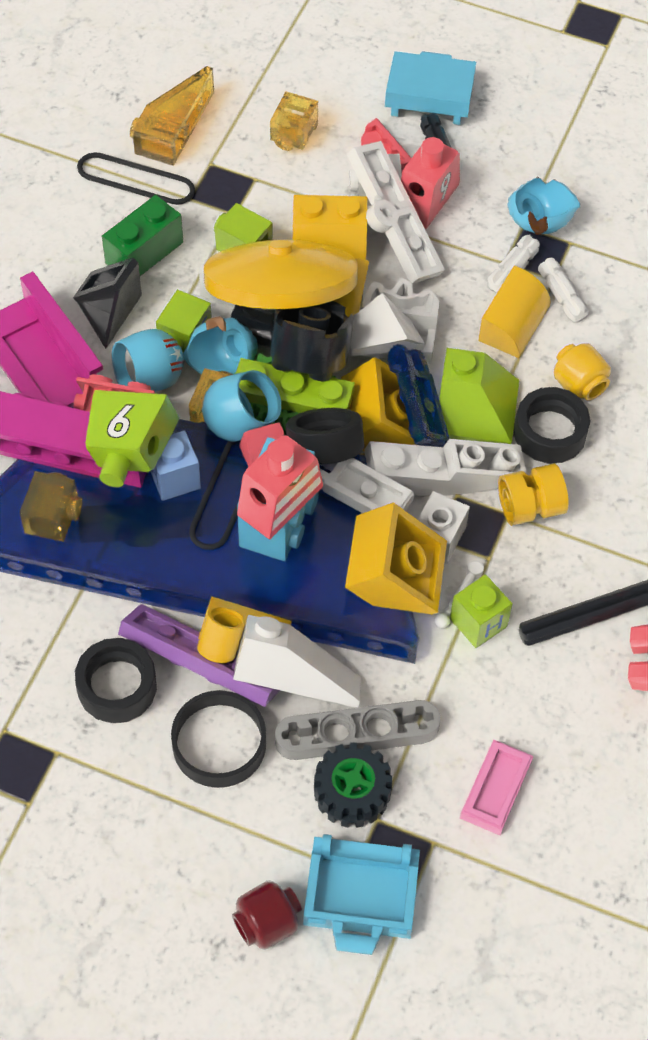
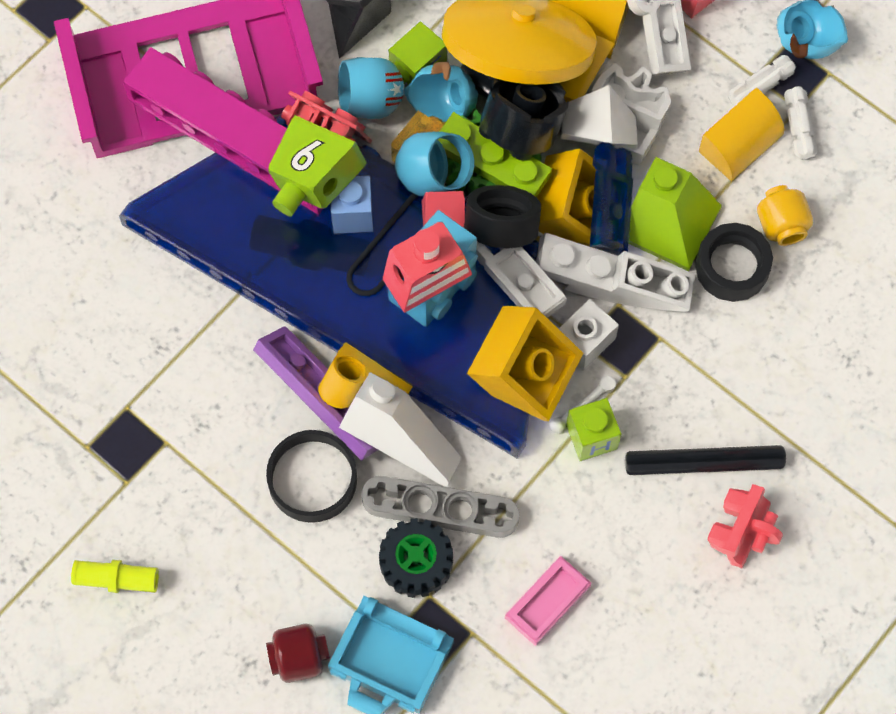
camera: 20 degrees right, 10 degrees up
(49, 898) = (115, 576): none -> neon yellow pin
(50, 506) = (227, 210): clear yellow brick -> none
(114, 651) = (231, 364): black tyre -> none
(538, 493) = (687, 328): yellow wheel -> none

